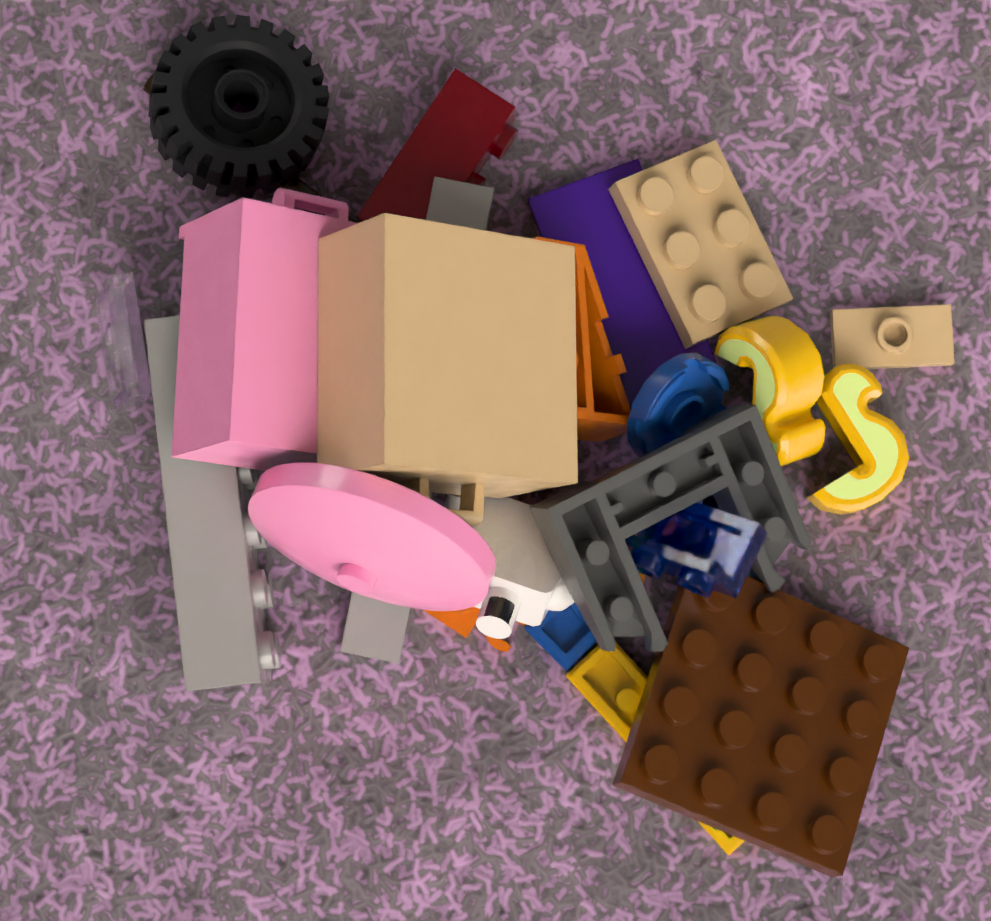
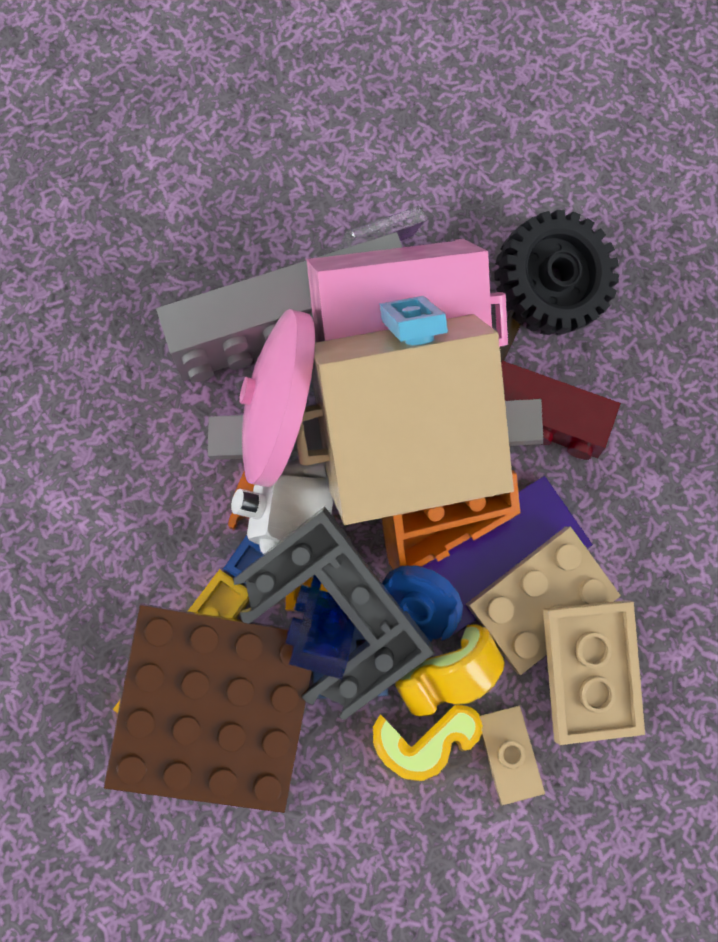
camera: 80 degrees right, 10 degrees down
(330, 323) = (414, 320): none -> medium azure plate
(811, 201) = (594, 672): none -> tan plate

